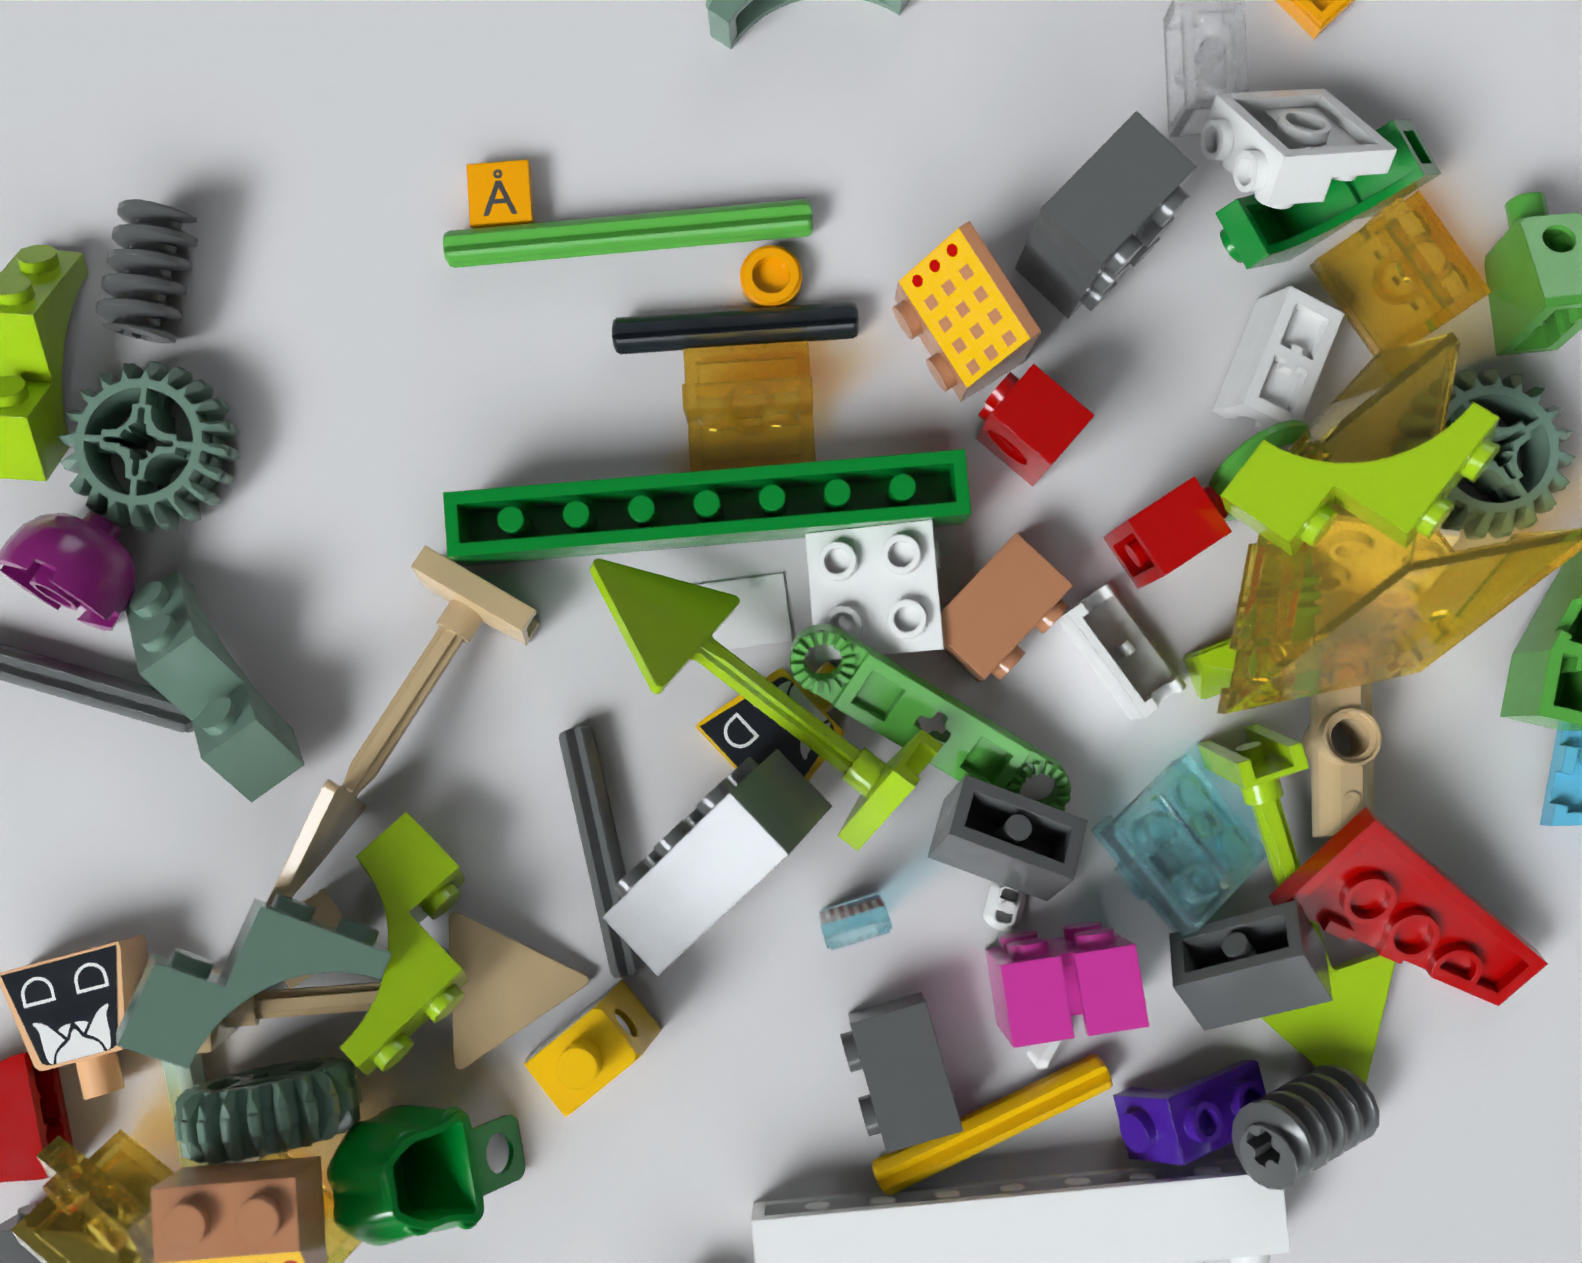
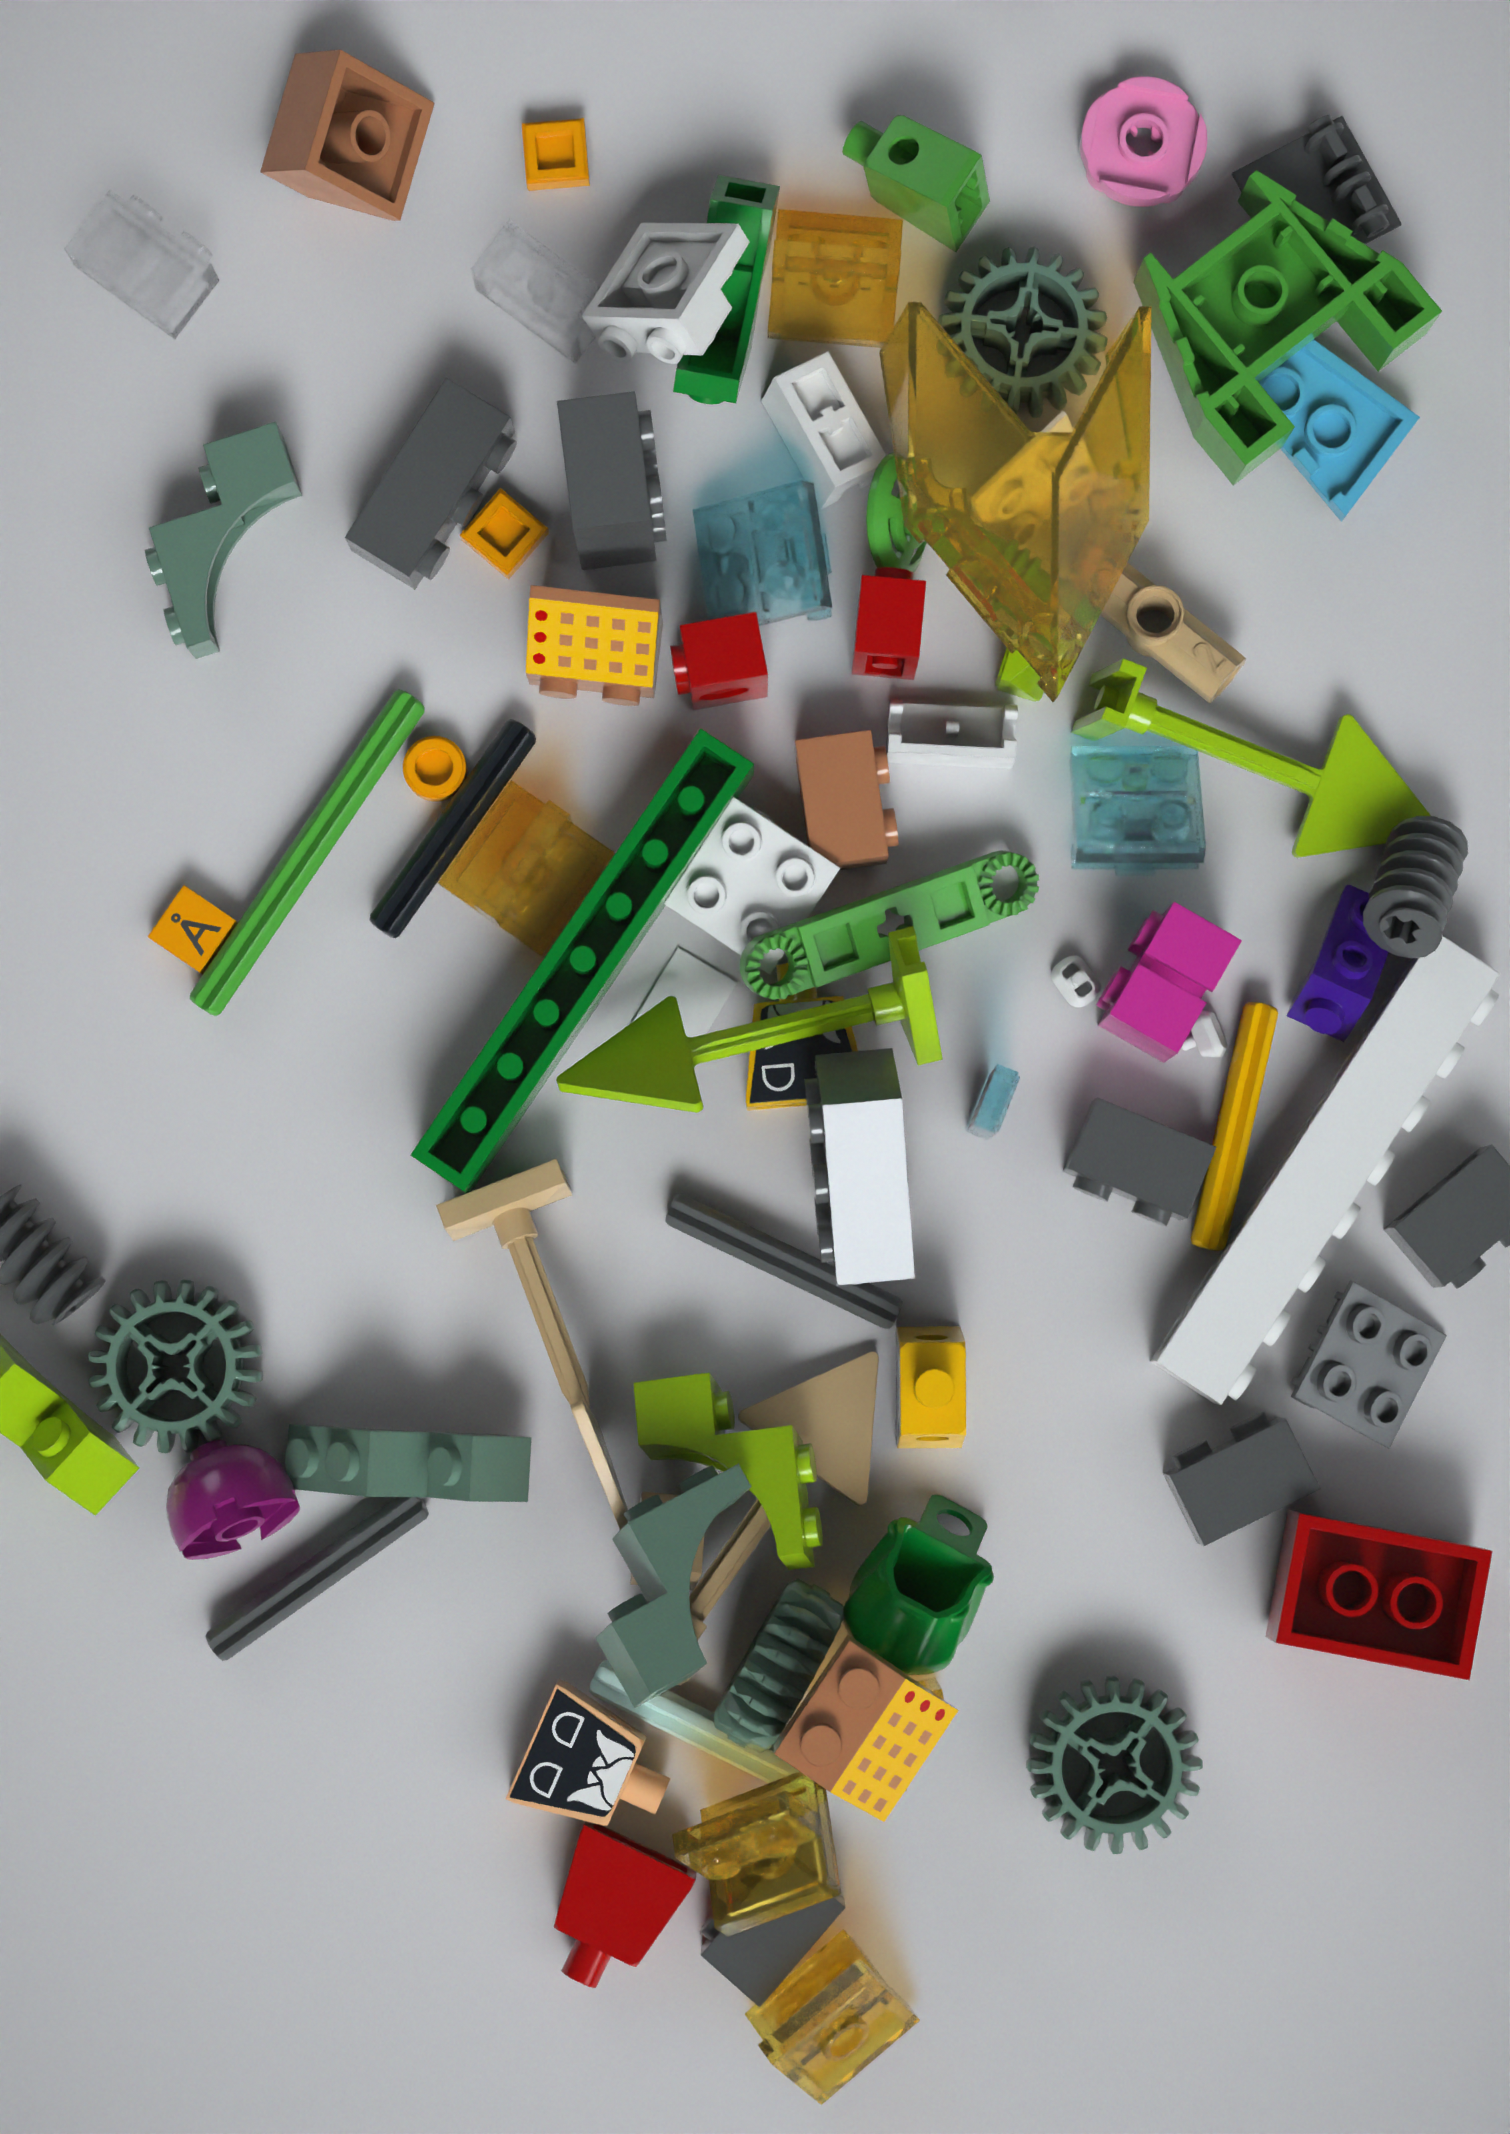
camera: 55 degrees left, 0 degrees up
(987, 98) = (432, 485): none -> dark grey brick
(994, 186) = (504, 533): none -> light orange tile
(1008, 838) = (1024, 937): dark grey brick -> none
(1144, 395) = (765, 555): none -> clear light blue plate
(1250, 966) = (1264, 831): dark grey brick -> none
(1398, 901) = (1318, 677): red wing -> none
(1400, 495) = (997, 442): lime arch -> none

